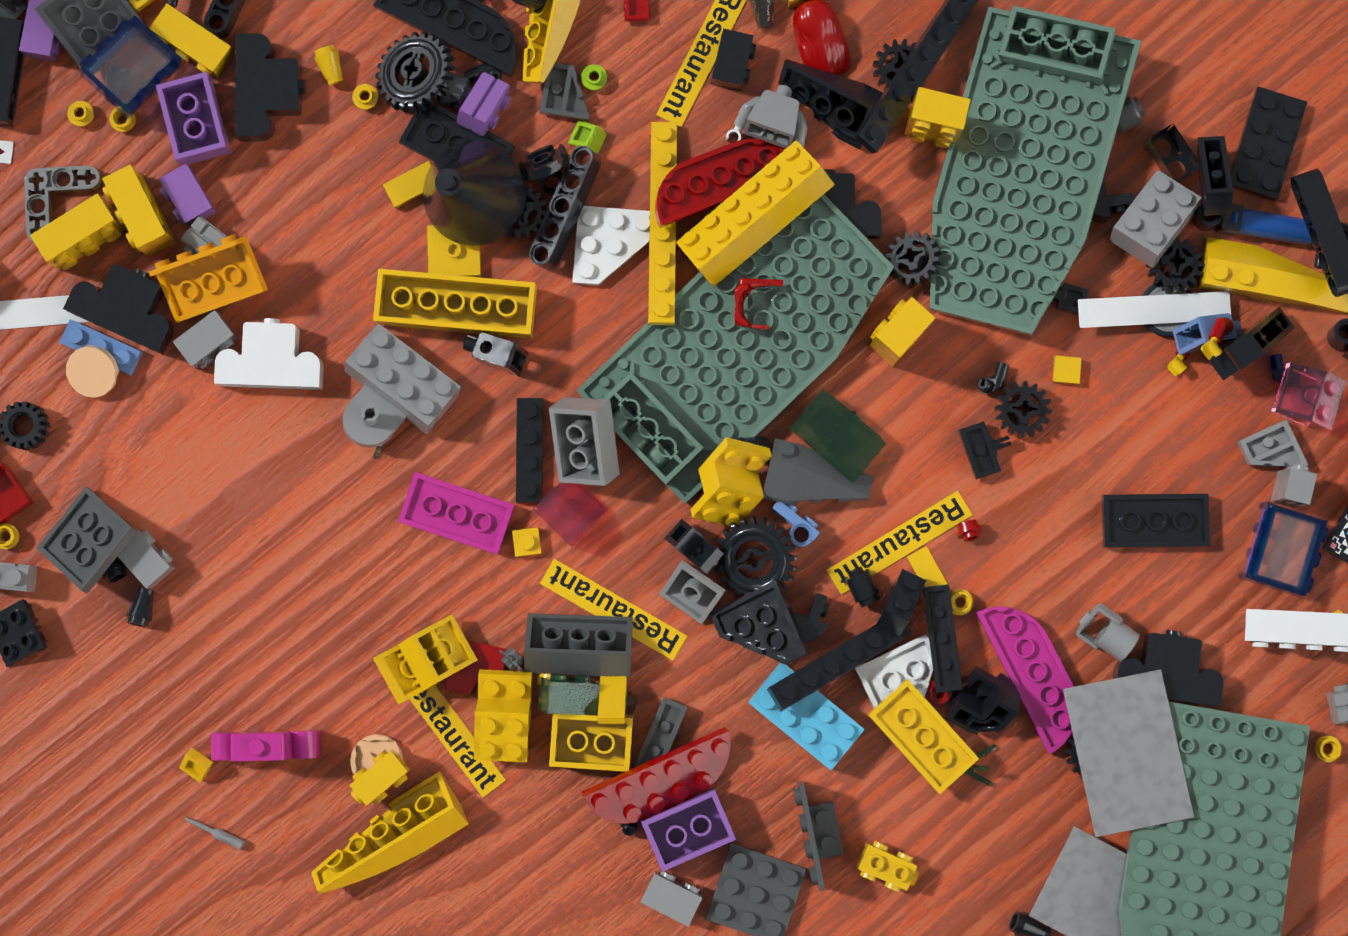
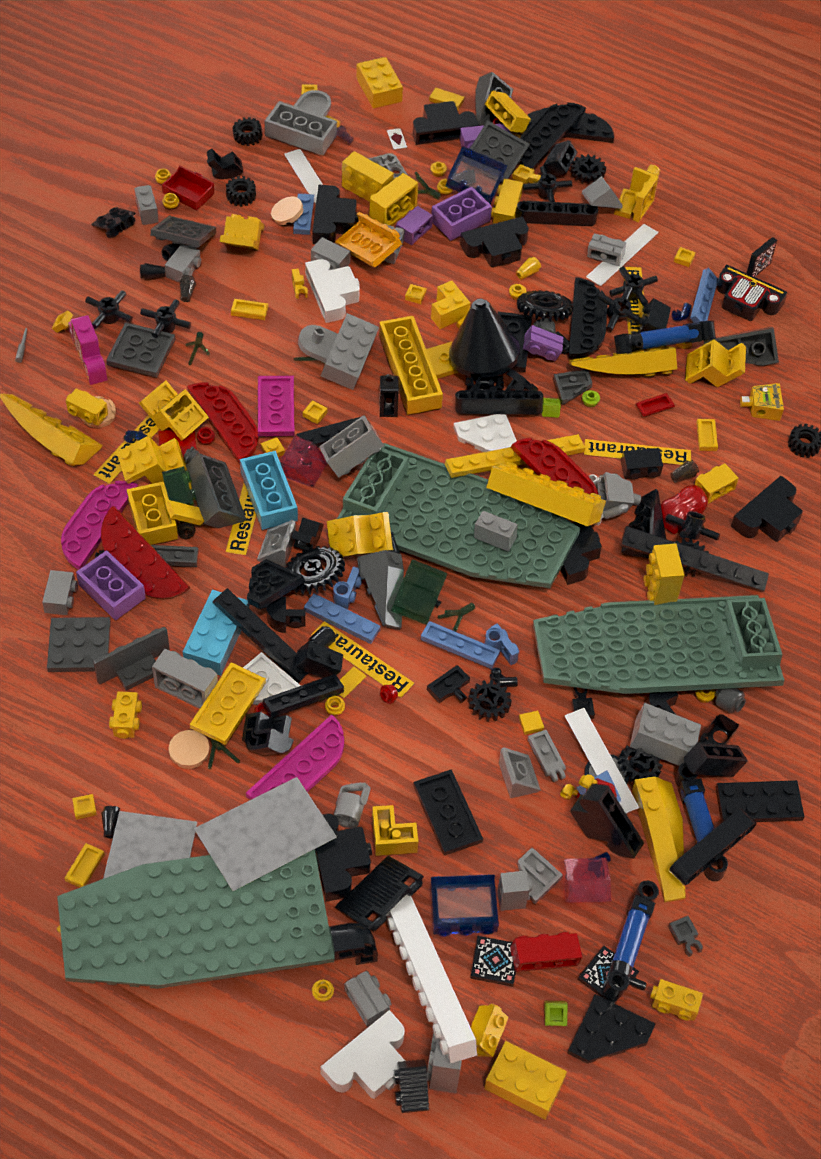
camera: 65 degrees right, 30 degrees down
(120, 146) = (428, 190): none -> plant
(120, 454) = (242, 232): none -> yellow bracket
(192, 567) = (187, 286): none -> clear smoke cone
(209, 694) = (108, 309): none -> black bar
(239, 404) = (298, 282): none -> yellow plate
(256, 616) = (165, 318): none -> black bar
(261, 490) = (249, 309): none -> yellow tile
(287, 668) = (139, 350): none -> dark grey plate
(316, 243) = (415, 294): none -> yellow tile
(316, 588) = (197, 343): none -> plant
(365, 199) = (450, 305): none -> yellow brick
(440, 721) = (132, 434): none -> clear blue arm
(454, 587) = (227, 418): none -> red plate
(465, 626) = (205, 435): none -> red plate
(487, 464) = (315, 412): none -> yellow plate
(568, 820) = (83, 530): none -> dark pink plate
(605, 574) = (268, 490): none -> medium azure brick
(745, 286) = (485, 502): red helmet -> none
(795, 305) = (495, 531): none -> light grey brick
(834, 546) = (342, 618): none -> medium blue plate
(863, 41) = (693, 526): none -> black bar
(870, 777) = (183, 678): none -> light grey brick
(883, 397) = (460, 613): none -> clear green plant
(905, 326) = (507, 599): yellow brick -> none
(921, 265) = (562, 601): black gear -> none
(928, 413) = (460, 645): none -> medium blue plate
(958, 355) = (503, 643): none -> medium blue plate
(960, 803) = (189, 749): none -> light nougat tile
(1120, 370) = (547, 755): none -> light grey hinge
(1134, 414) = (518, 773): none -> light grey slope
(1170, 605) = (392, 837): none -> yellow brick
(1240, 643) = (379, 892): none -> black window
(1294, 697) = (353, 941): none -> black brick

